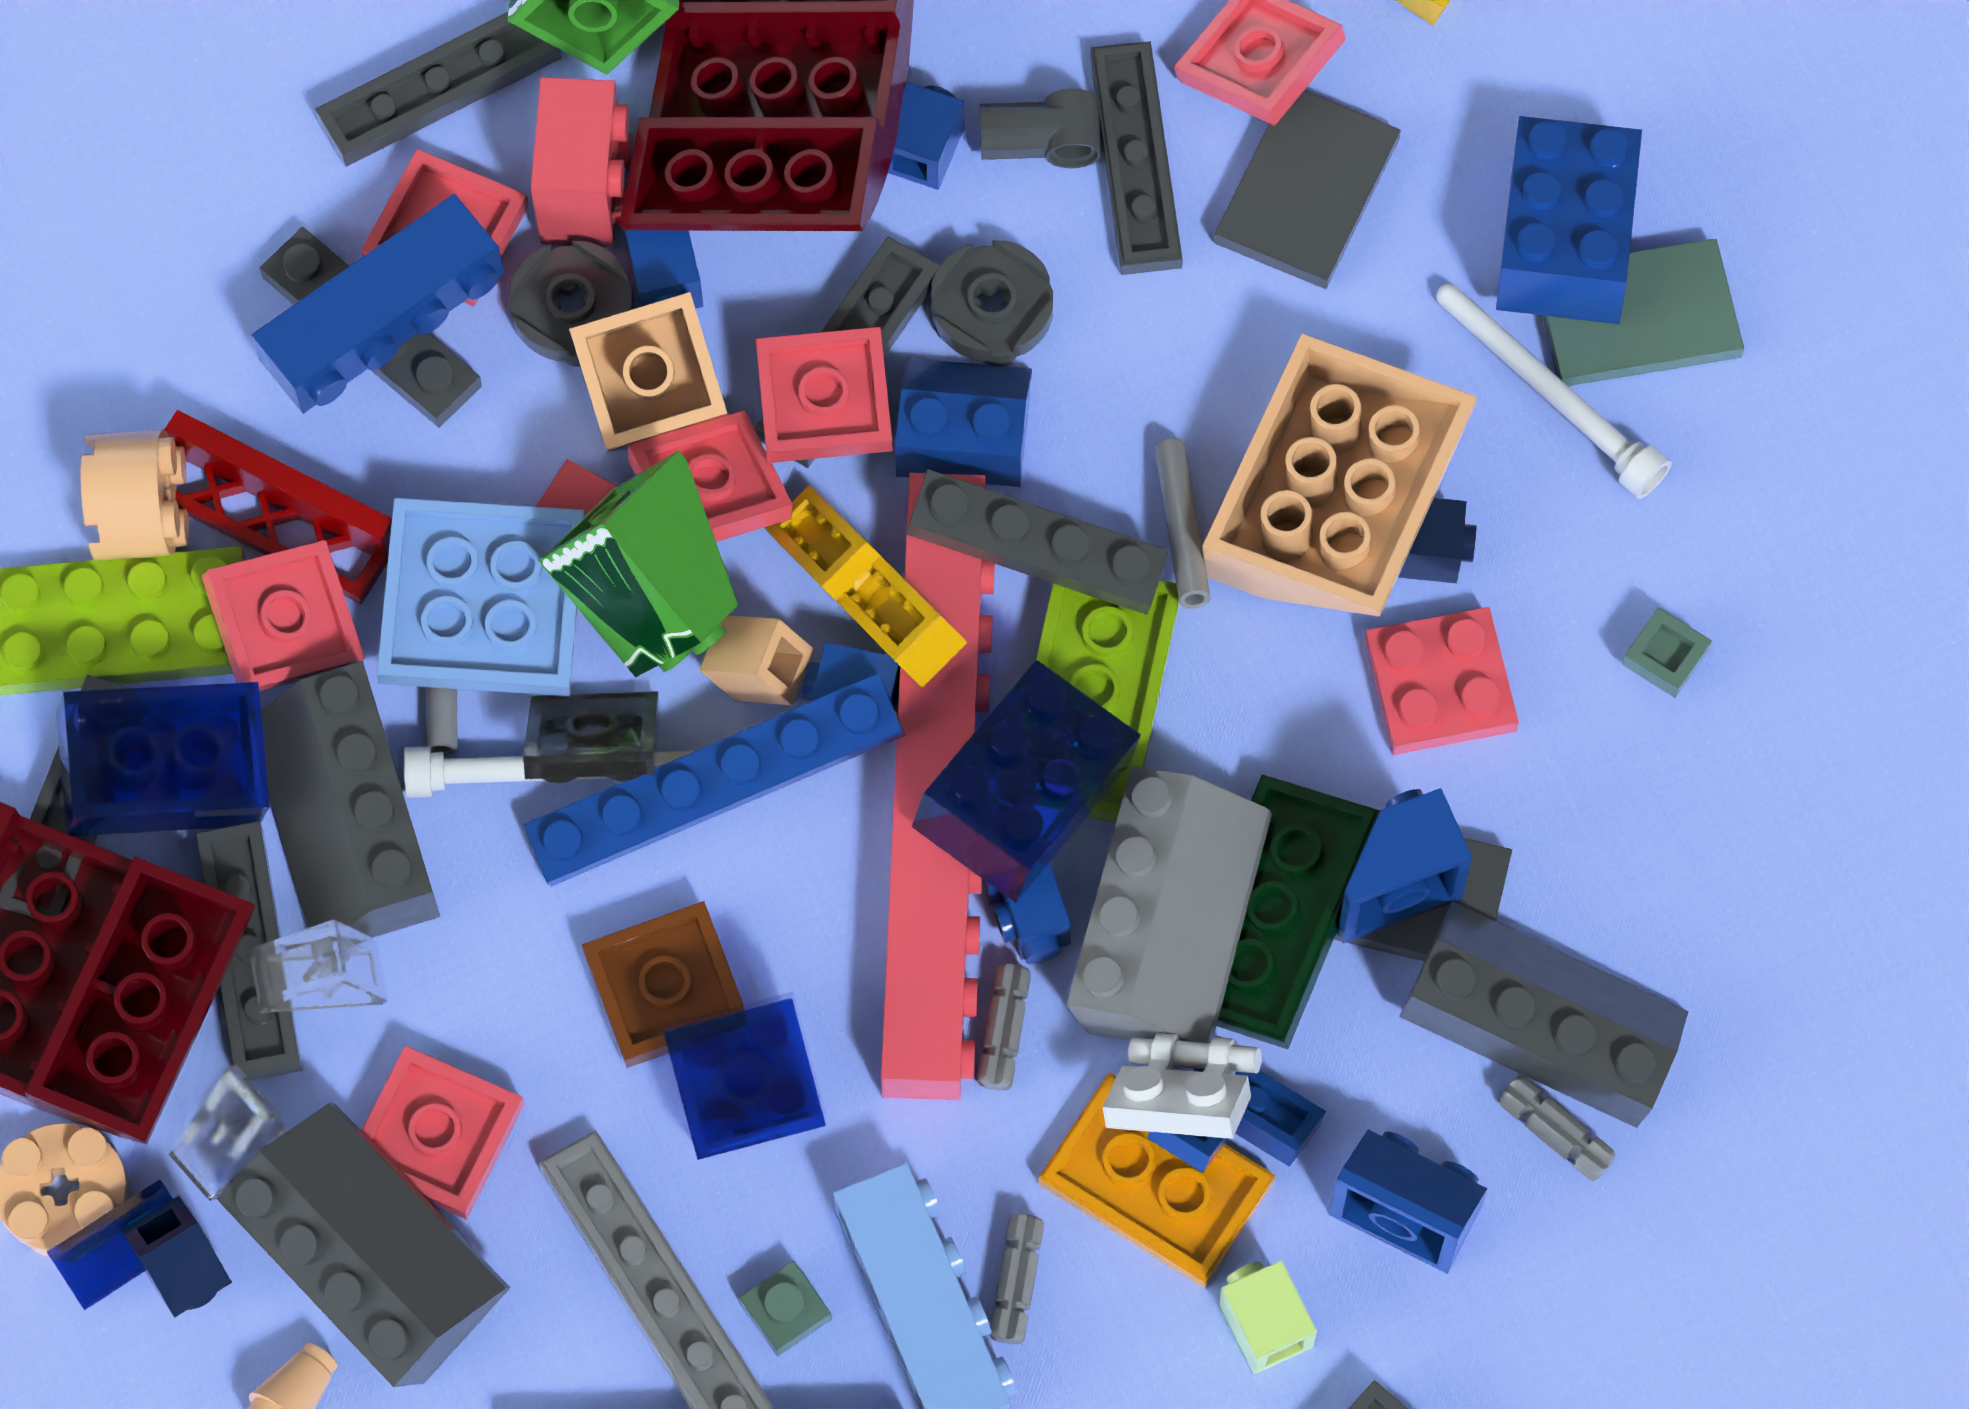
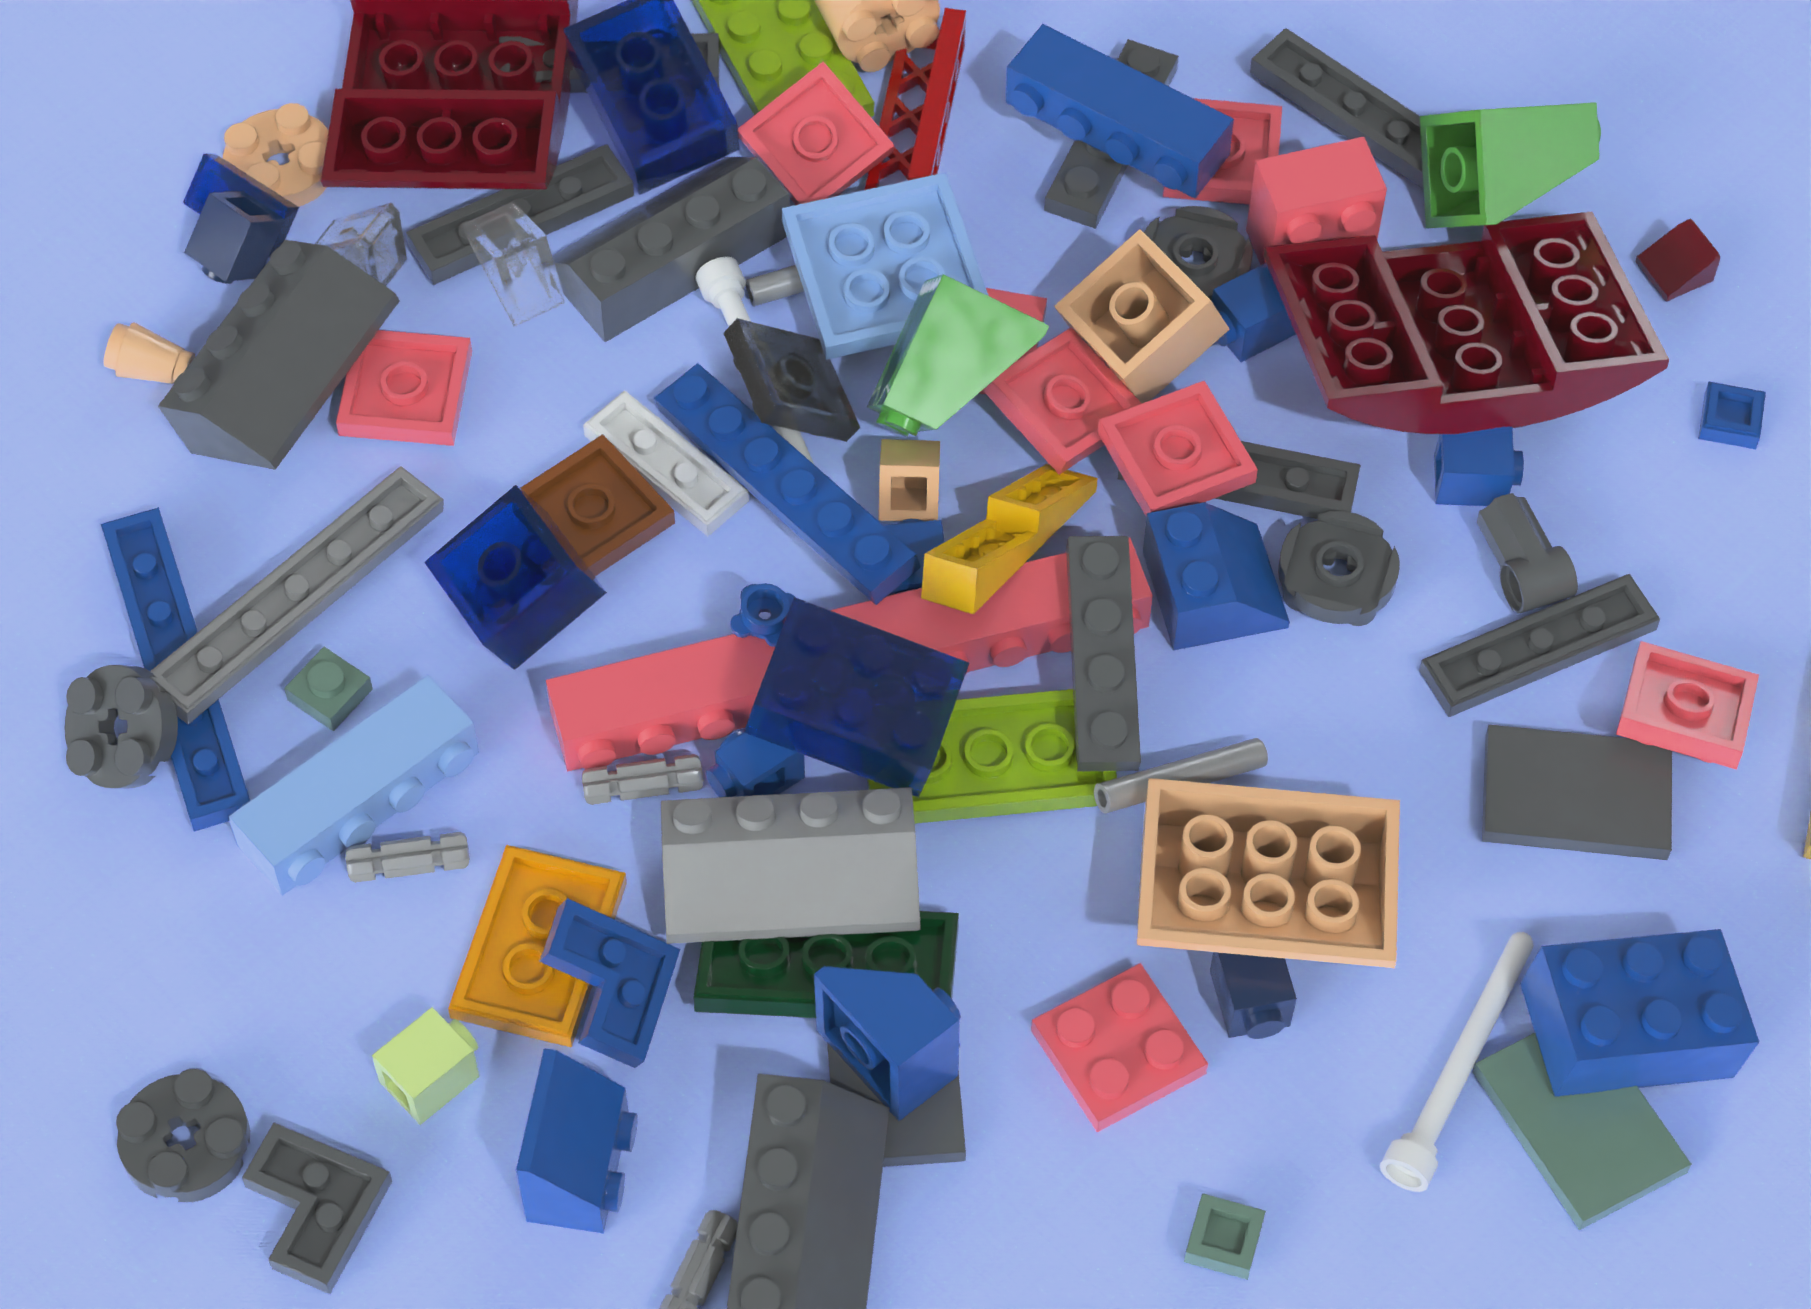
camera: 70 degrees right, 10 degrees down
(625, 895) = (669, 463): none -> white tile
(884, 823) = (758, 599): none -> blue plate
(1178, 1100) = (594, 910): white plate -> none

